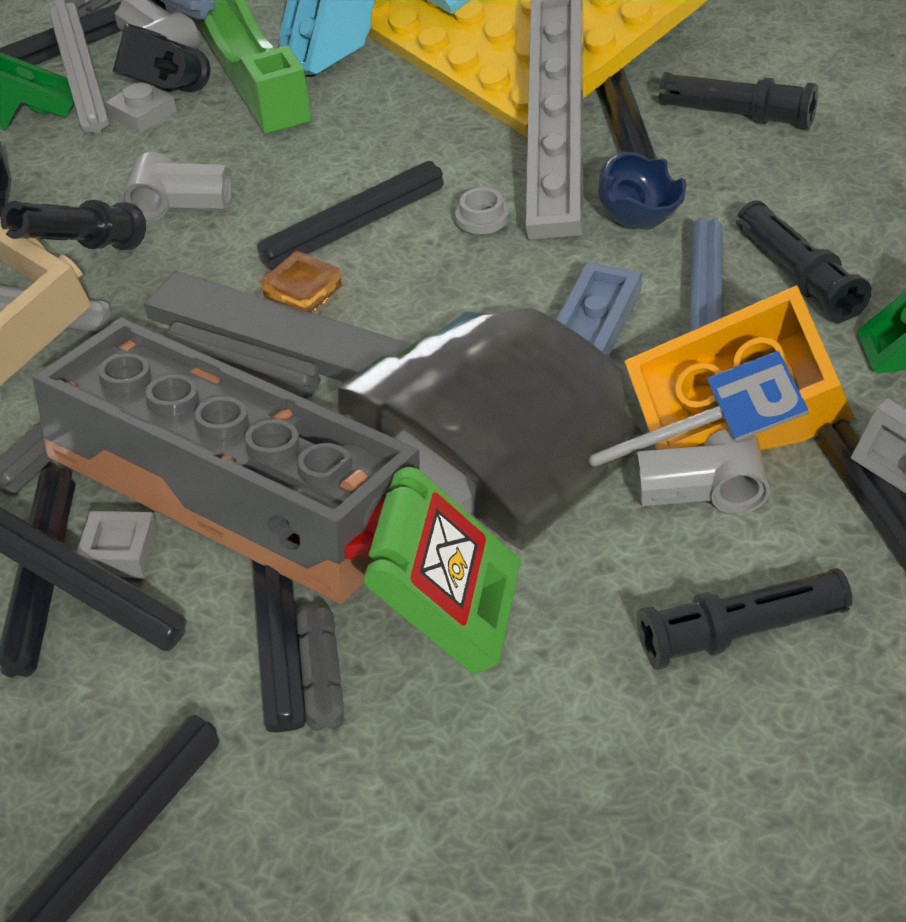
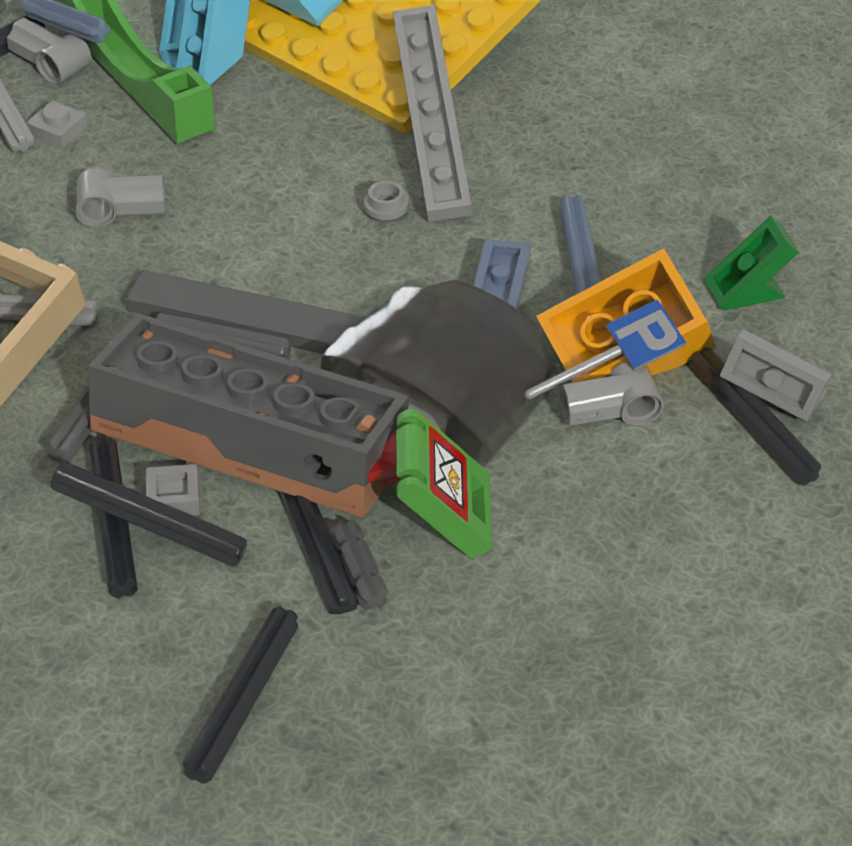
camera: 15 degrees left, 0 degrees up
(91, 223) = (65, 235): black pin -> none
(160, 61) = (62, 81): black piece -> none
(302, 282) = (254, 271): clear orange plate -> none
(351, 214) = (275, 211): black axle -> none
(626, 115) = (491, 124): black axle -> none
(639, 190) = (514, 176): dark blue hair -> none
(715, 621) = (642, 503): black pin -> none
(761, 100) = (594, 90): black pin -> none
(813, 270) = (662, 231): black pin -> none

